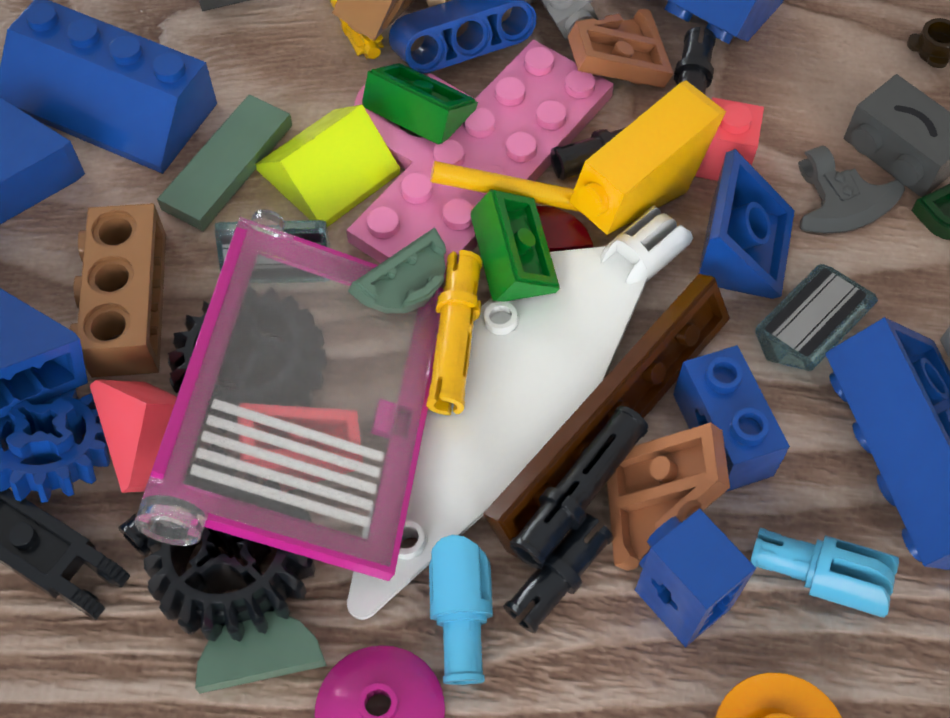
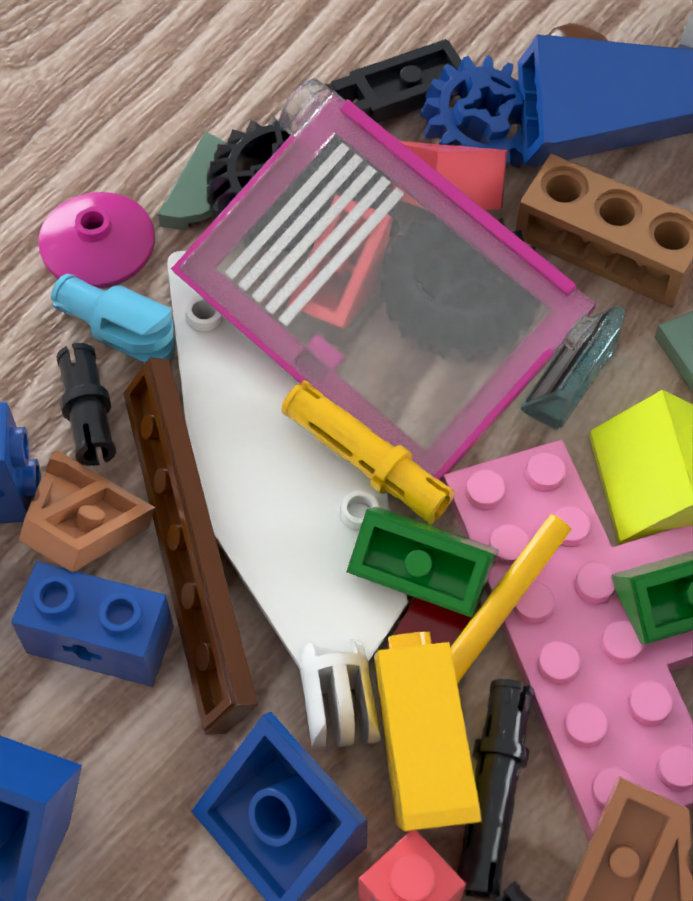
camera: 125 degrees right, 0 degrees up
(406, 278) = (449, 435): sand green tile -> none
(565, 505) = (149, 504): black pin -> none
(813, 318) = (130, 804): slope -> none

